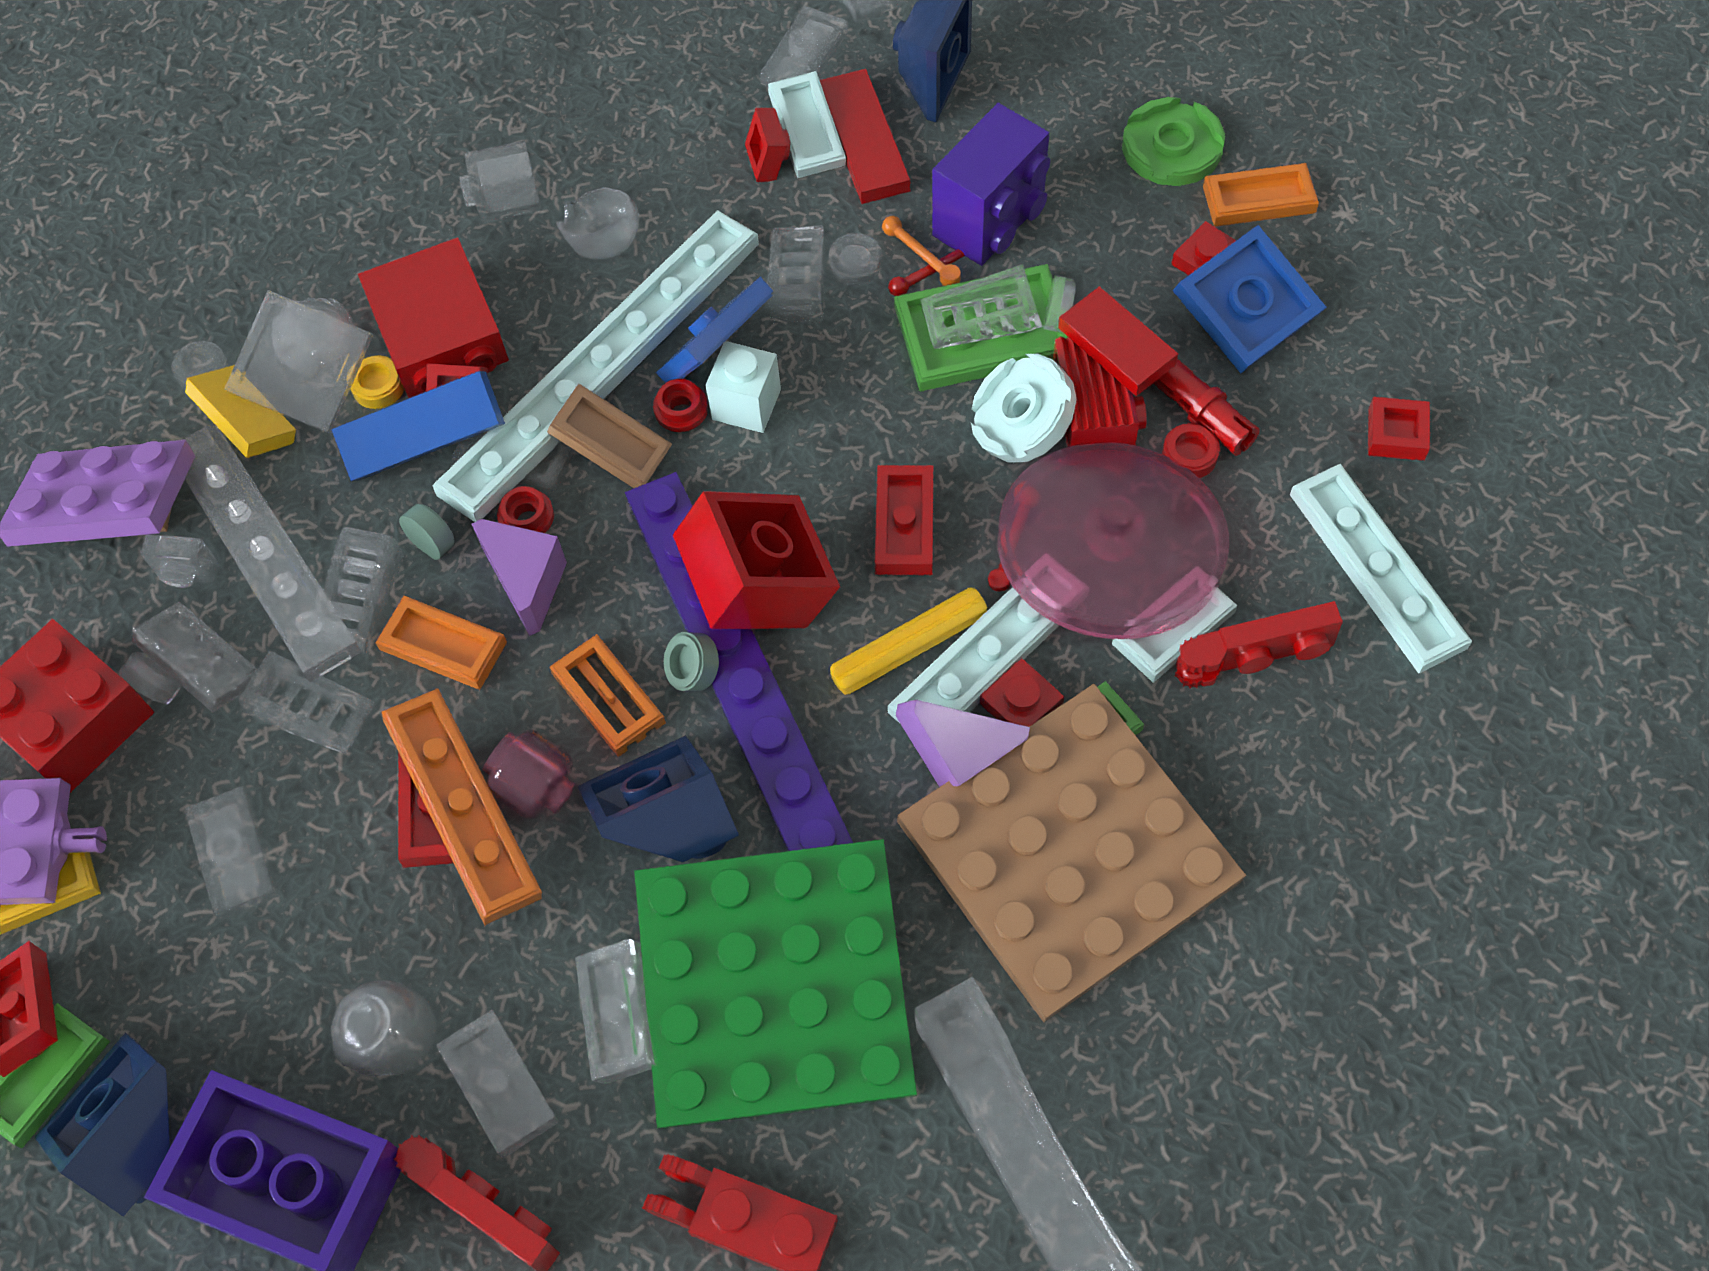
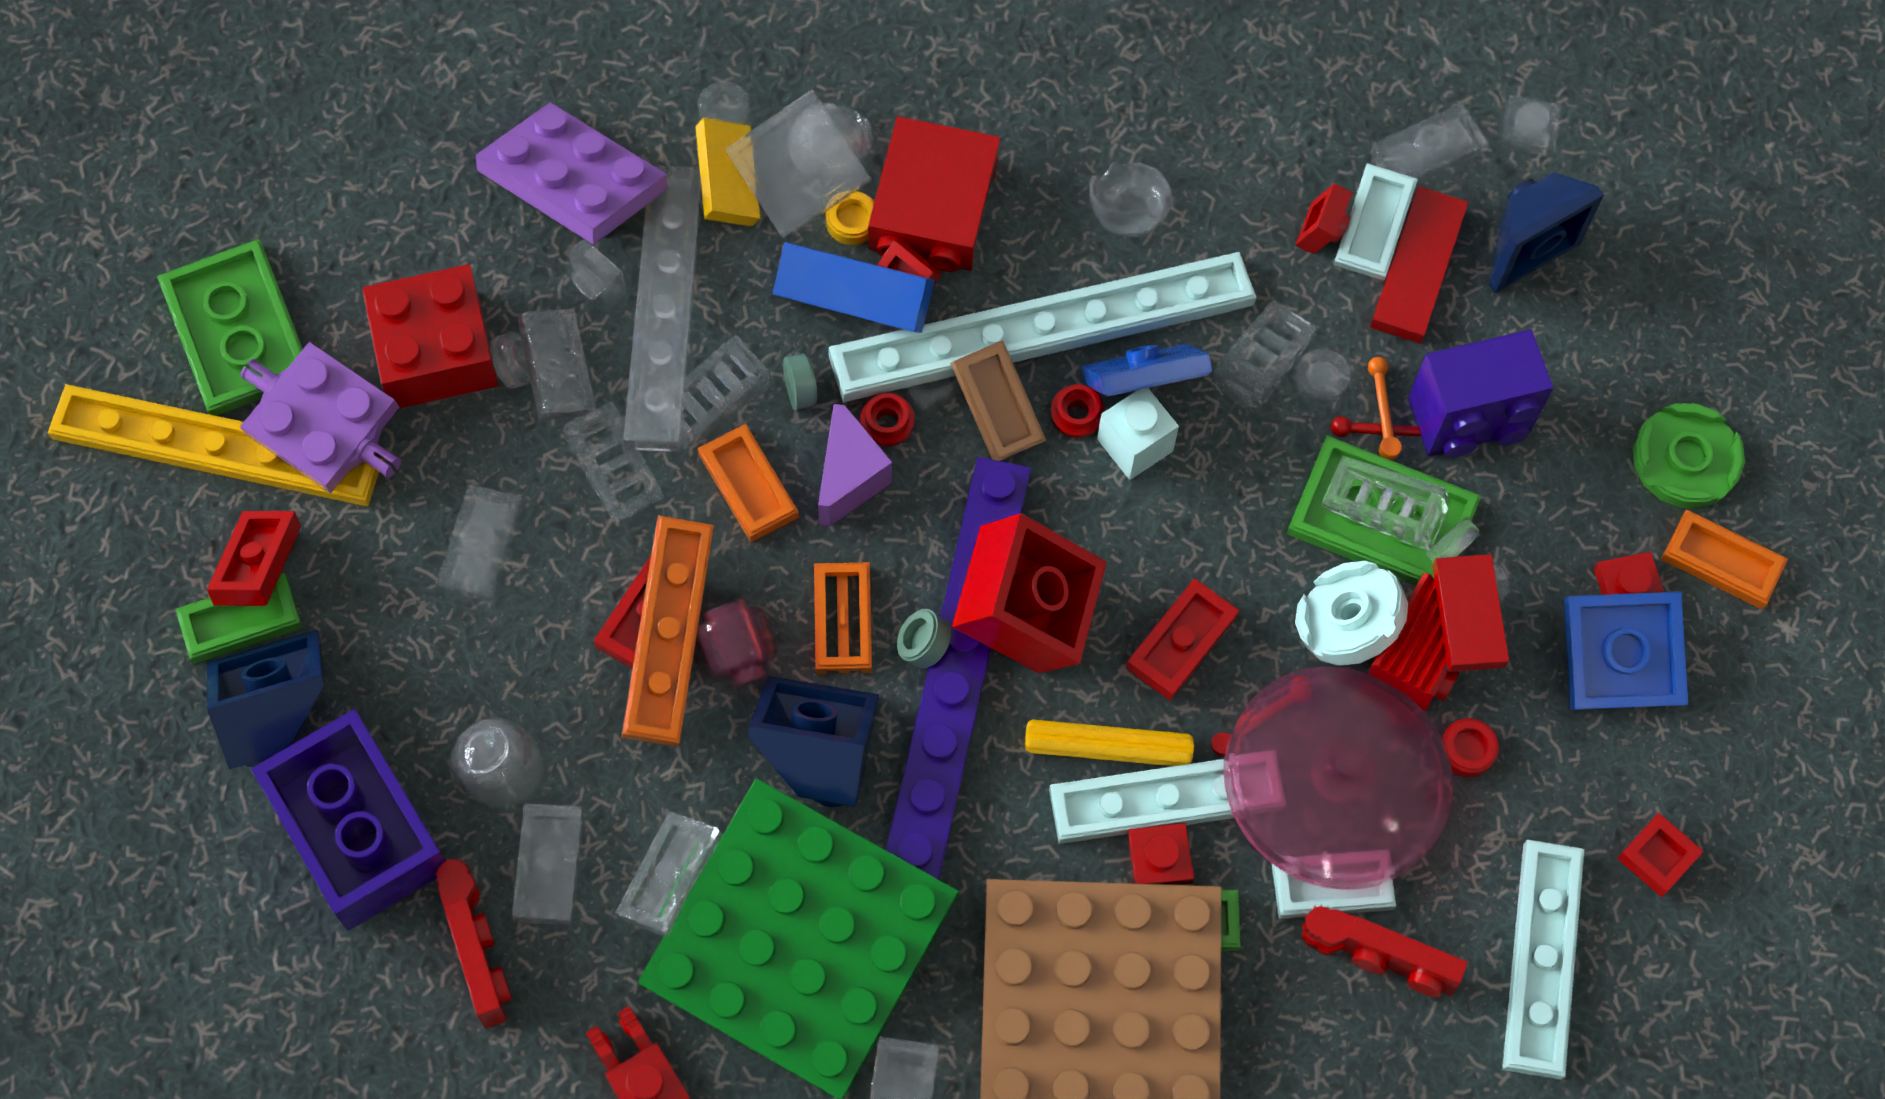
camera: 30 degrees right, 5 degrees up
(500, 182) = (1076, 103): clear brick -> none
(955, 741) = (1077, 858): medium lavender slope -> none
(1208, 408) = (1510, 713): red pin -> none

